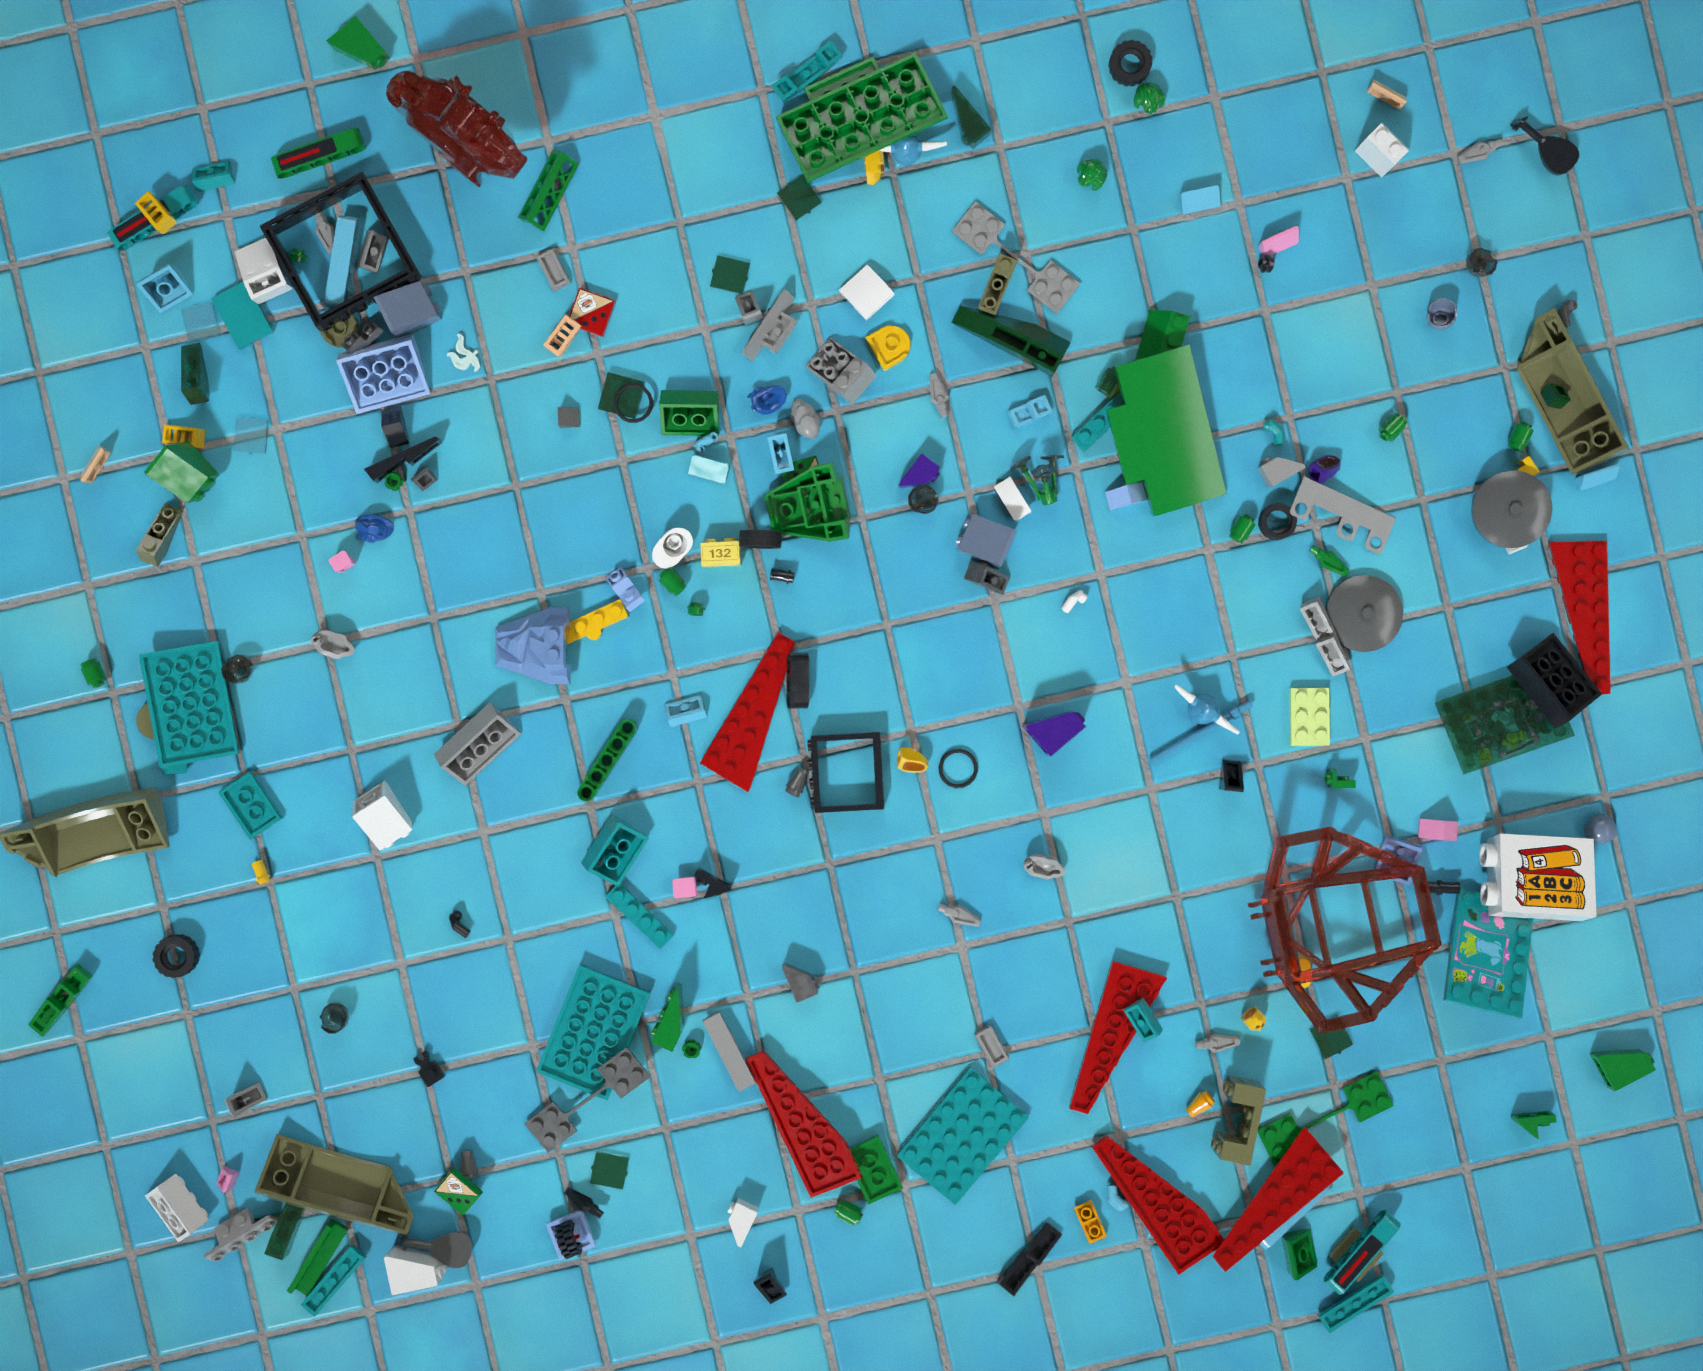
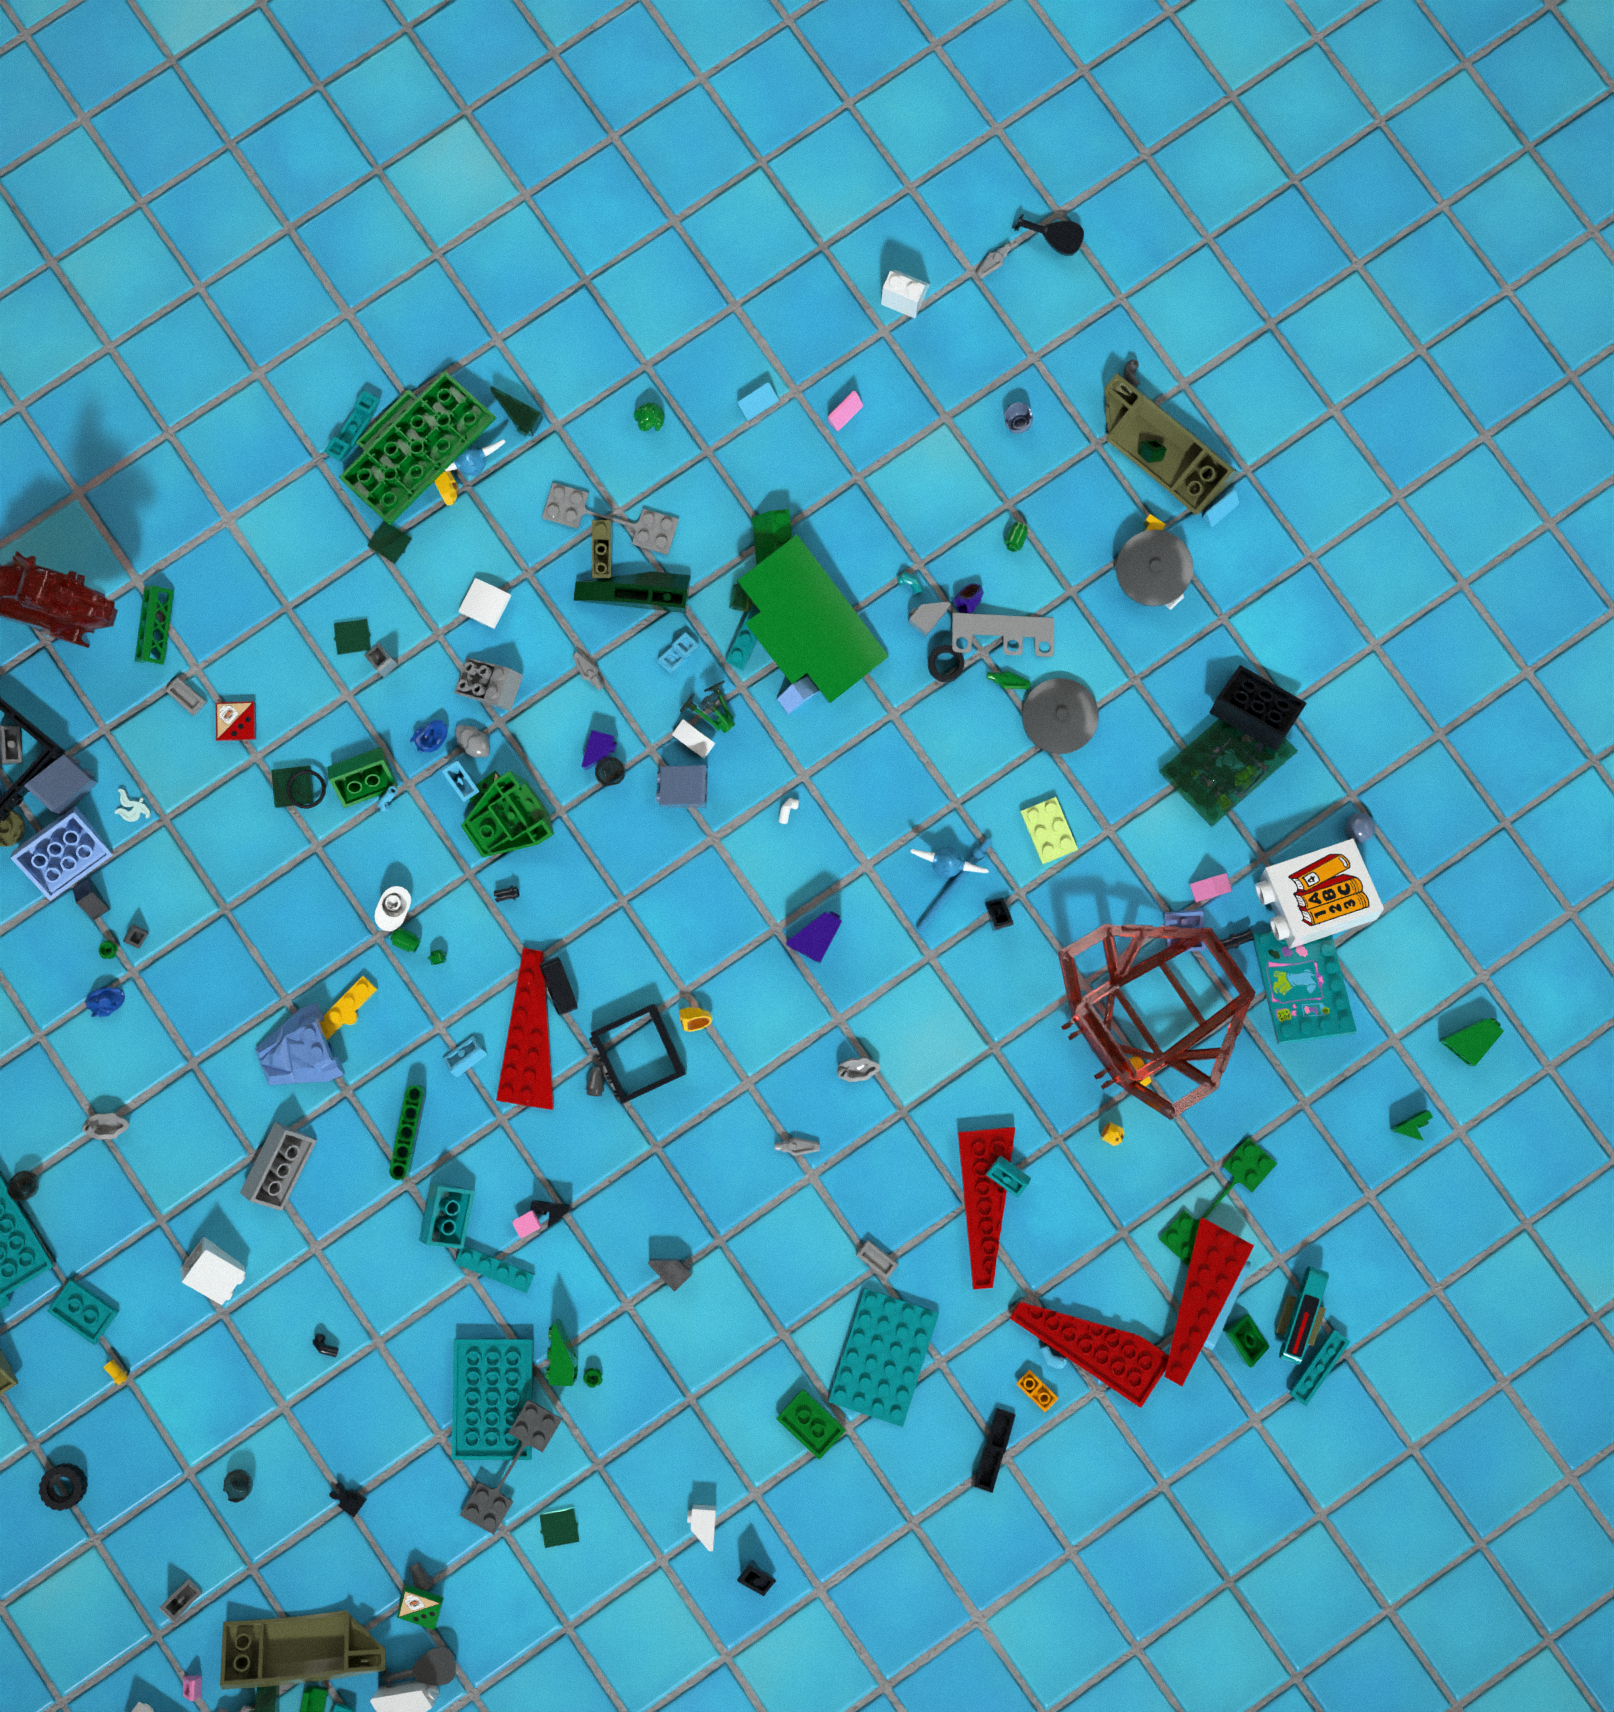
camera: 20 degrees left, 5 degrees down
(342, 562) = (86, 1044): bright pink slope -> none
(355, 342) = (24, 834): flat silver slope -> none
(412, 455) = (115, 919): black slope -> none
(557, 332) = (210, 752): light nougat slope -> none
(568, 417) = (250, 826): dark grey slope -> none
(571, 1234) = (545, 1605): plate -> none
(583, 1202) = (546, 1569): black piece -> none
(625, 589) = (363, 964): light blue slope -> none
(708, 469) = (400, 822): slope -> none
(720, 553) = (441, 895): light yellow brick -> none
(729, 1051) = (629, 1365): light grey slope -> none
(760, 539) = (472, 867): black tyre -> none
(773, 329) = (410, 671): light grey bracket -> none
(812, 1141) = (742, 1420): red wing -> none
(848, 1212) = (803, 1475): green brick -> none
(889, 345) = (525, 643): yellow tile -> none
(941, 769) = (725, 1004): black piece -> none
(986, 577) = (697, 820): flat silver slope -> none
(1137, 49) = (652, 292): black tyre -> none
(1150, 97) = (675, 329): green hair -> none
(1201, 1103) = (1095, 1234): light orange cone -> none
(1218, 1042) = (1088, 1170): light grey piece -> none
(1240, 1148) = (1141, 1263): olive plate -> none
(1242, 528) = (916, 682): green brick -> none
(1266, 263) = (840, 435): black plate -> none
(1325, 635) = (1035, 753): light grey slope -> none
(1331, 1042) = (1193, 1123): clear green piece -> none
(1342, 782) = (1103, 879): green bracket -> none
(1387, 94) = (889, 243): light nougat slope -> none
(1480, 263) = (1034, 359): clear smoke hair -> none
(1520, 436) = (1135, 499): green brick -> none
(1584, 586) = (1252, 613): red wing -> none

